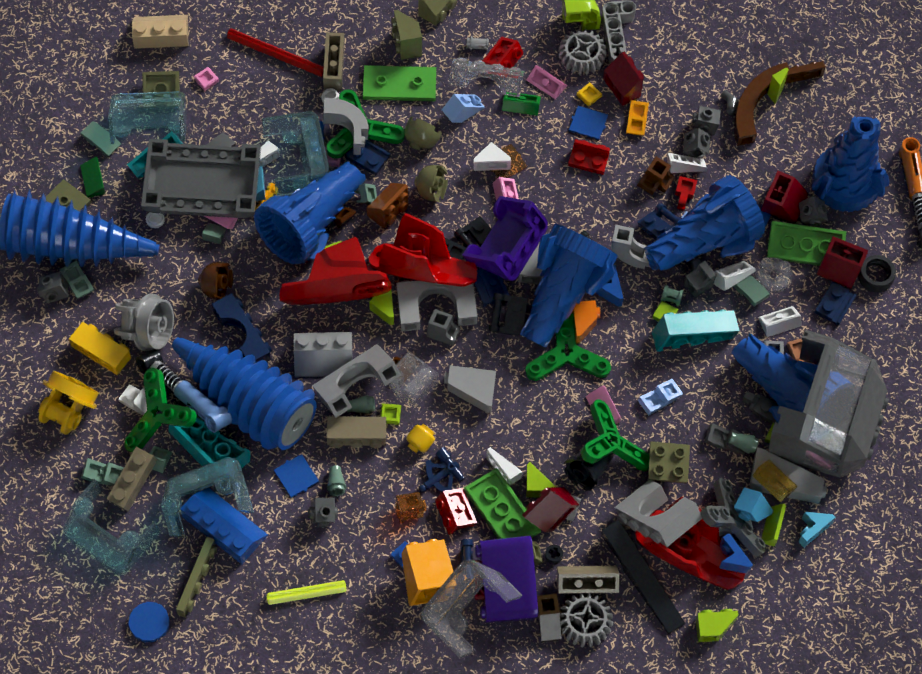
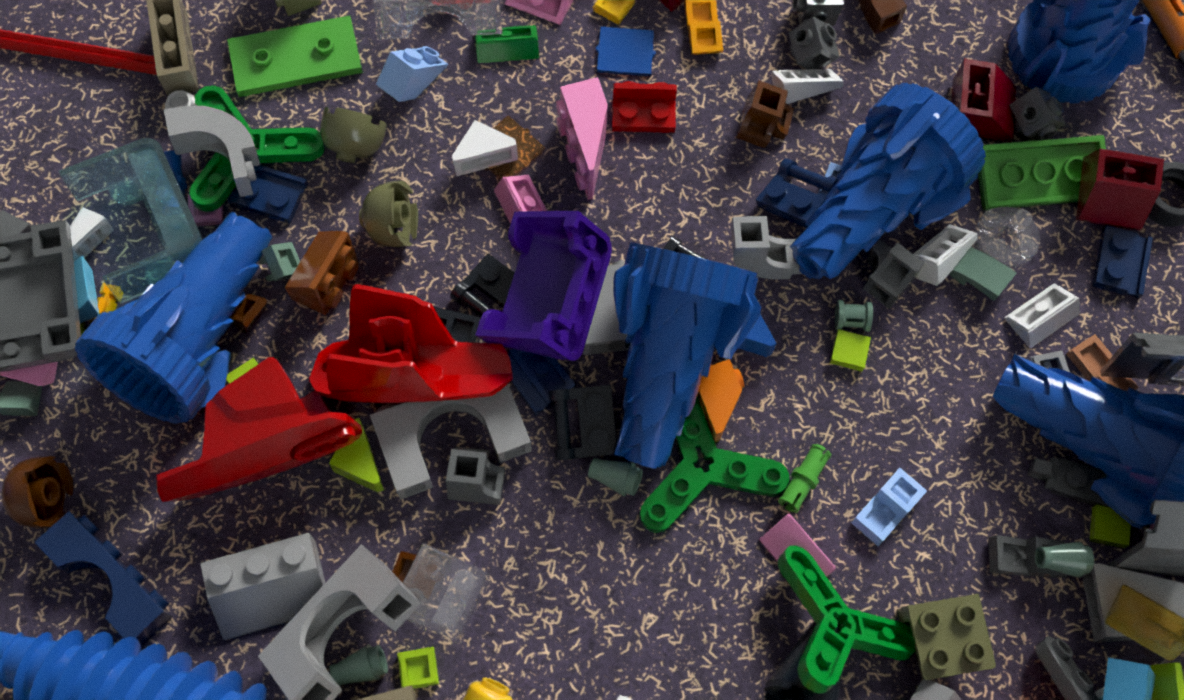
camera: 15 degrees left, 5 degrees up
(472, 385) = (555, 575): light grey slope -> none
(519, 346) = (617, 475): none -> sand green cone
(551, 159) = (584, 122): none -> bright pink slope
(619, 371) = (804, 478): none -> bright green pin
(685, 189) = (818, 125): red plate -> none
(694, 328) = (911, 367): wedge -> none

